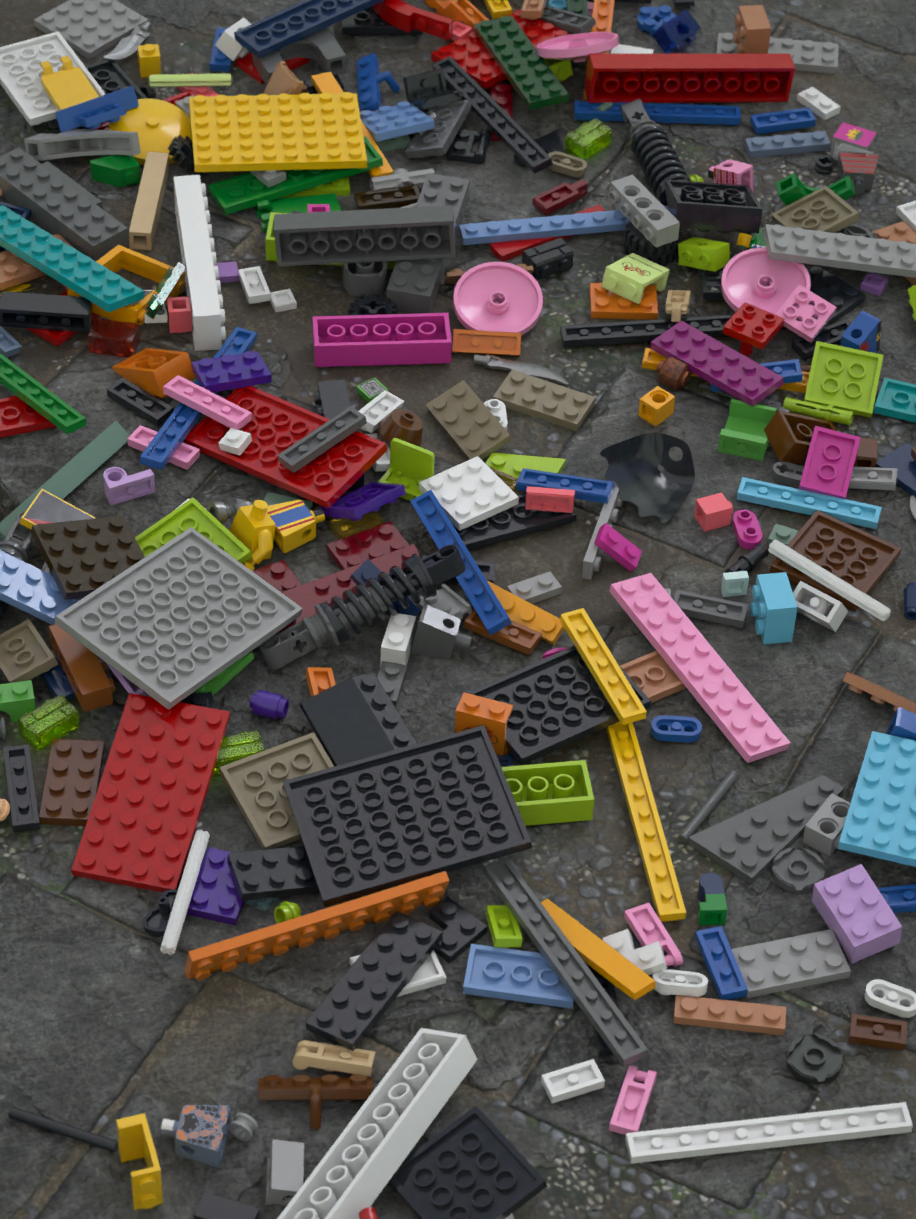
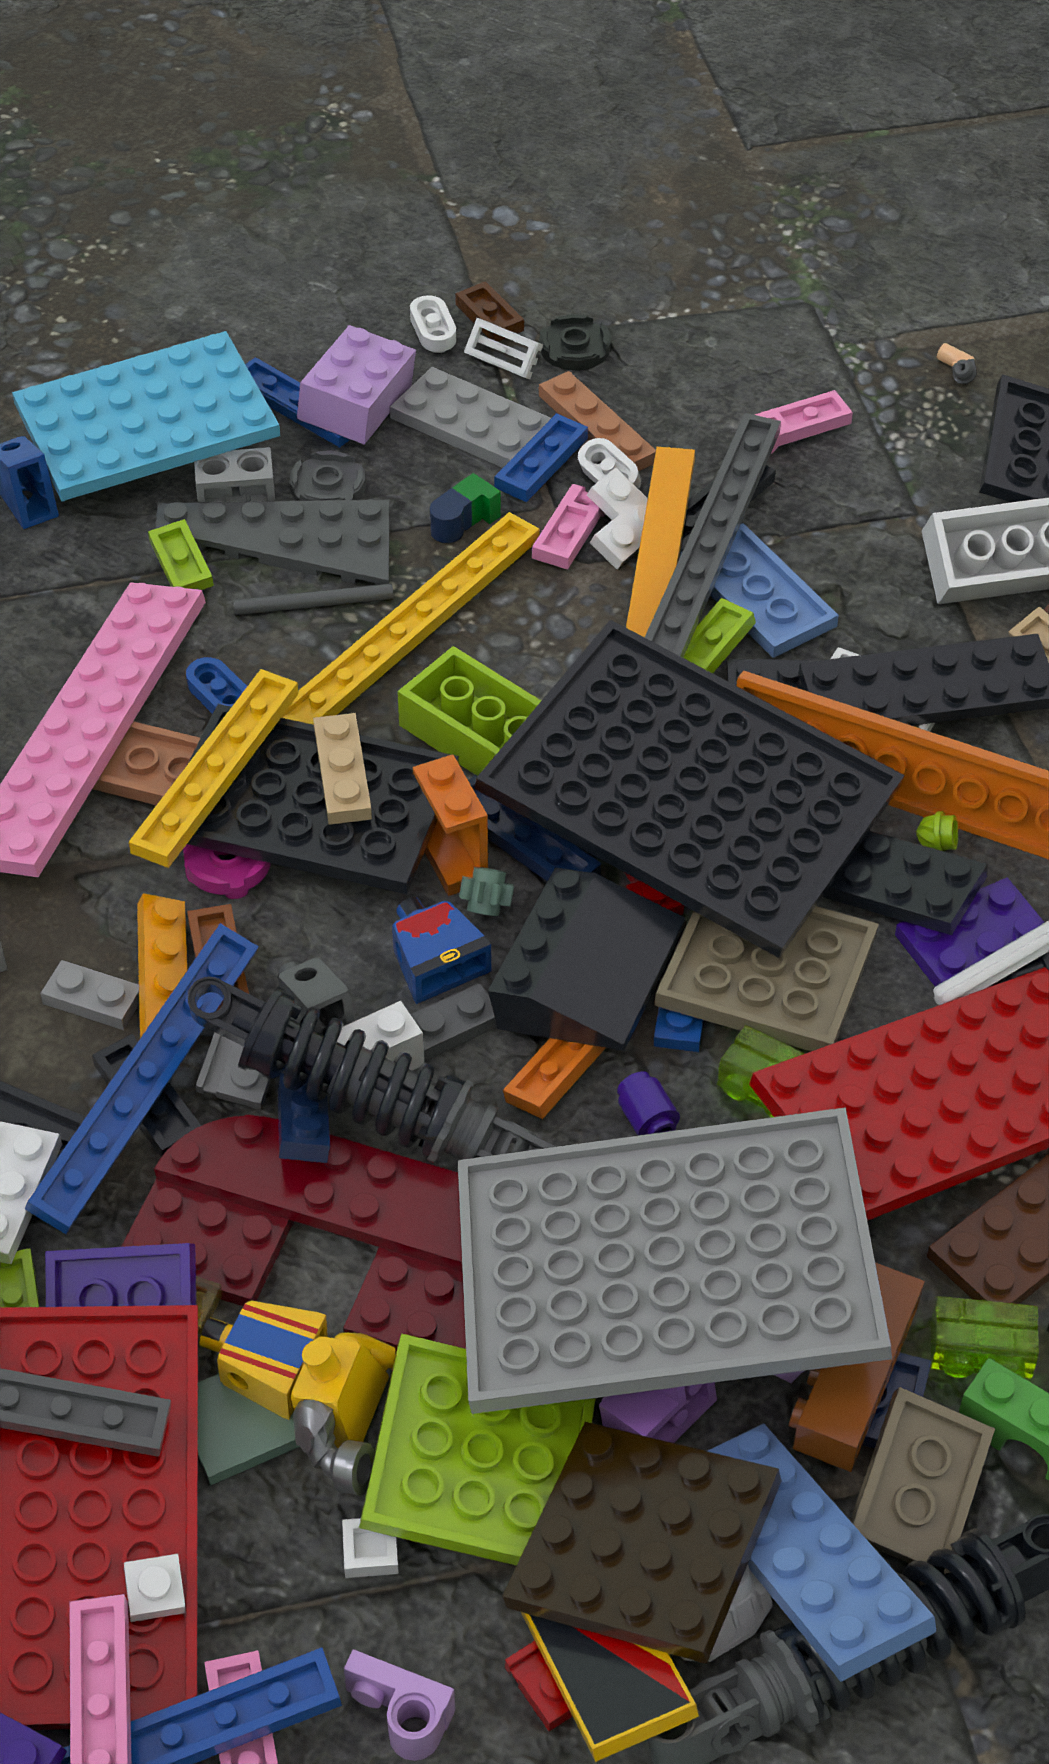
camera: 130 degrees left, 5 degrees up
(429, 697) = (437, 948): none -> blue torso
(439, 727) = (486, 891): none -> sand green gear
(556, 710) = (342, 768): none -> tan plate
(572, 1081) = (835, 473): white plate -> none
(768, 1132) = (712, 318): white plate -> none
(787, 768) = (180, 556): none -> lime plate
(833, 1010) = (528, 358): none -> white tile

